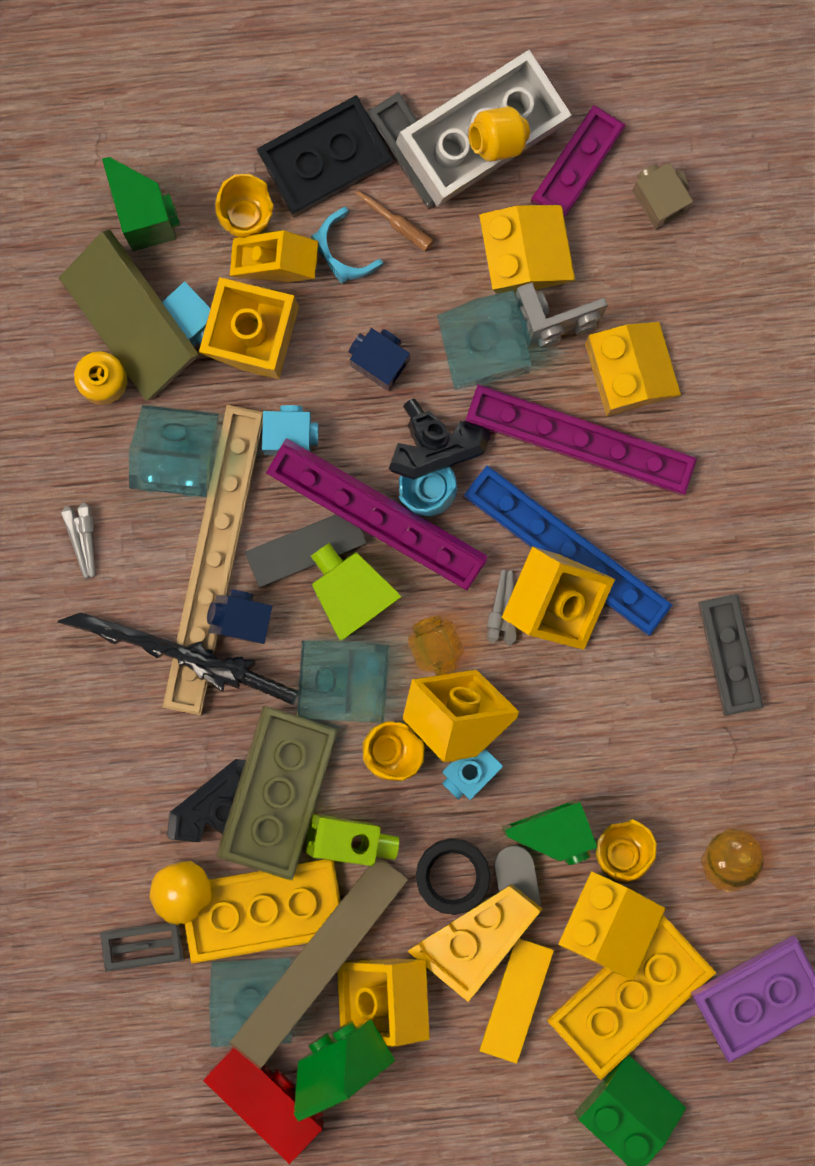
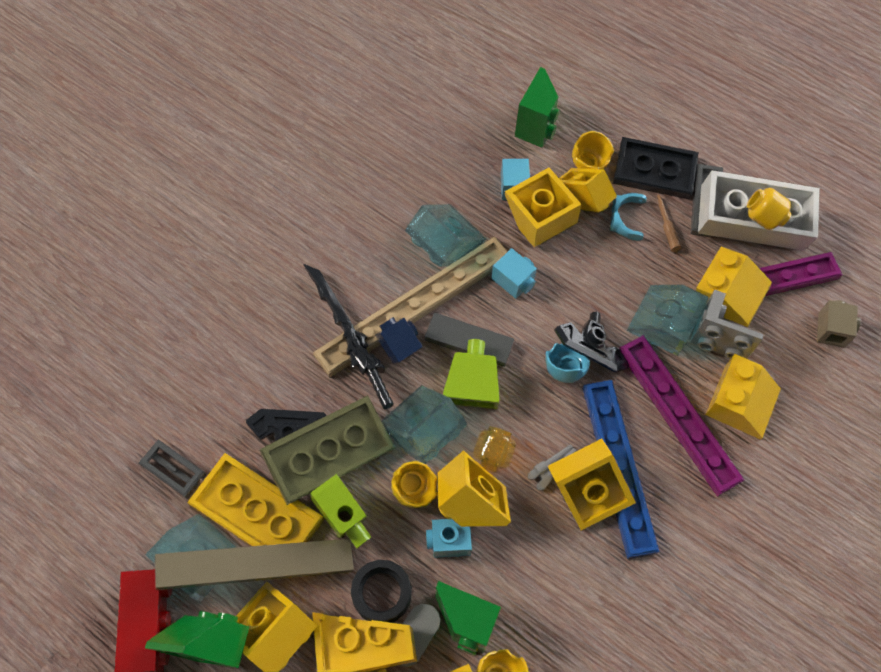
camera: 40 degrees right, 20 degrees down
(81, 536) = (358, 236): light grey piece -> none
(109, 387) = (442, 170): yellow head -> none
(128, 315) = (484, 155): olive tile -> none
(180, 892) = (220, 455): yellow hair -> none
(376, 514) = (526, 352): magenta tile -> none
(379, 357) = (599, 277): dark blue brick -> none
(730, 654) = (671, 616): dark grey tile -> none

